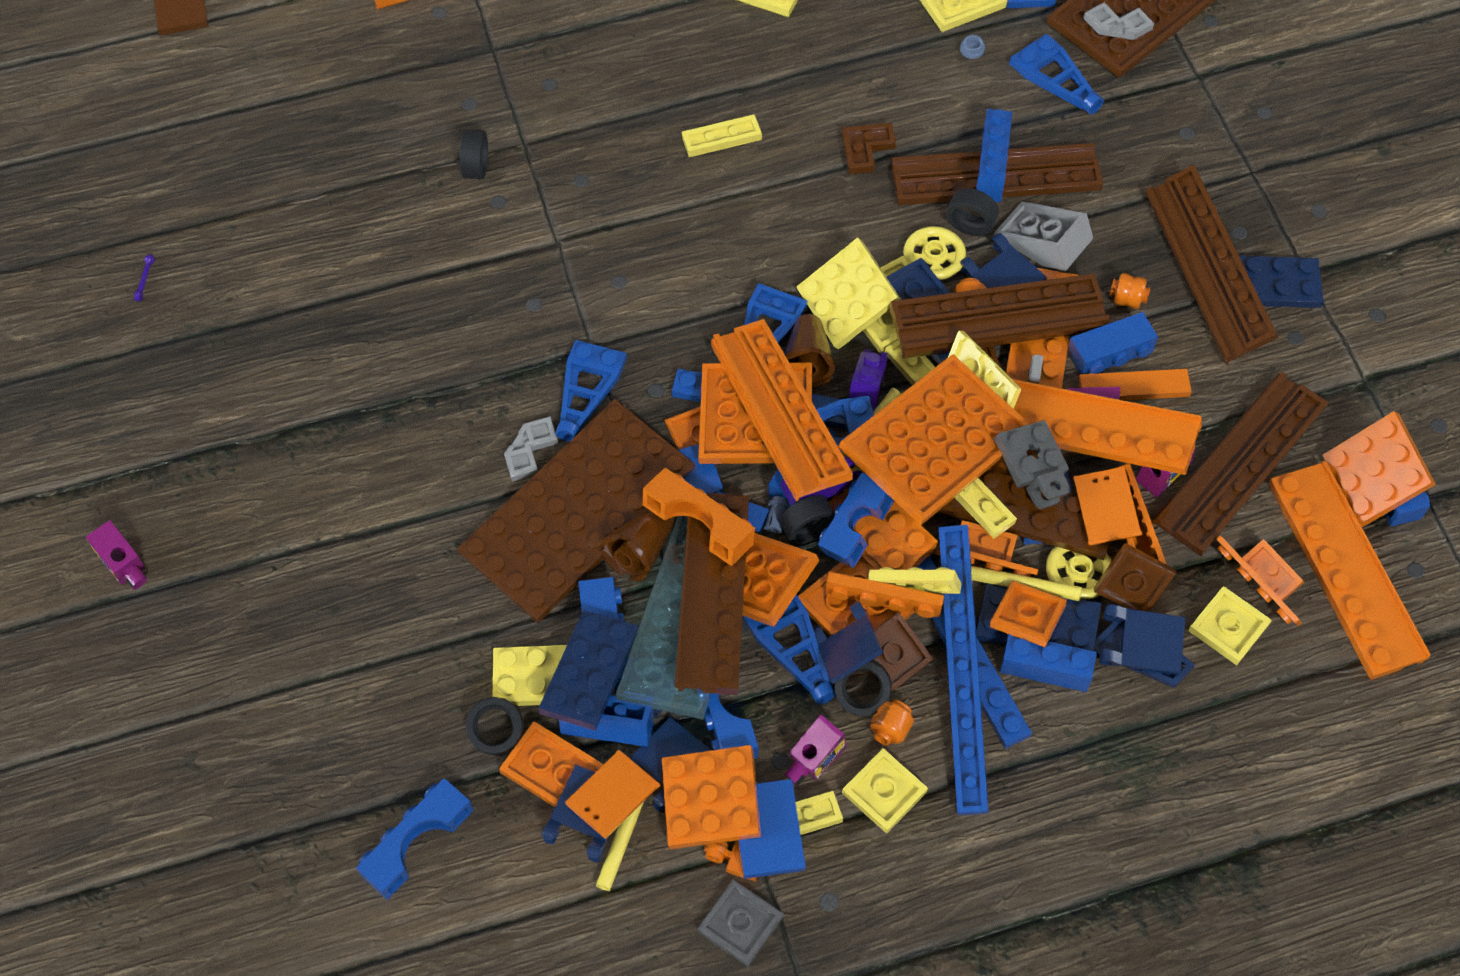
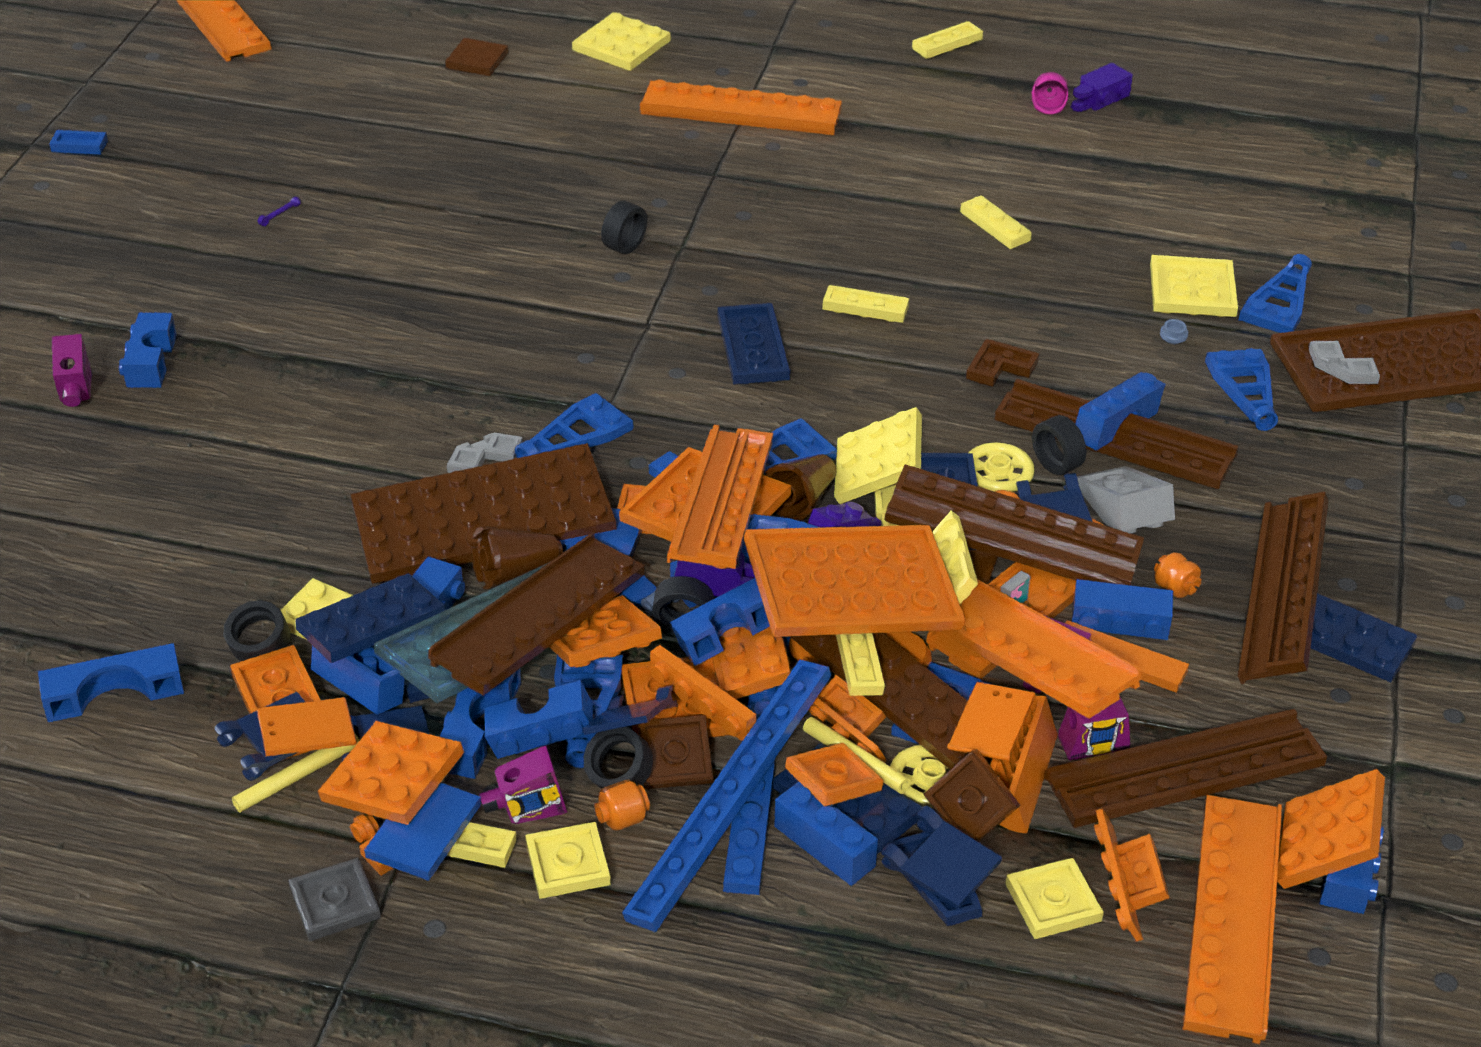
camera: 30 degrees right, 20 degrees down
(168, 510) = (144, 358): none -> blue arch
(662, 223) = (753, 343): none -> dark blue plate
(672, 496) = (586, 566): orange arch -> none
(765, 705) = (563, 717): none -> blue arch
(934, 581) = (751, 692): light yellow plate -> none
(1038, 473) = (941, 660): dark grey plate -> none

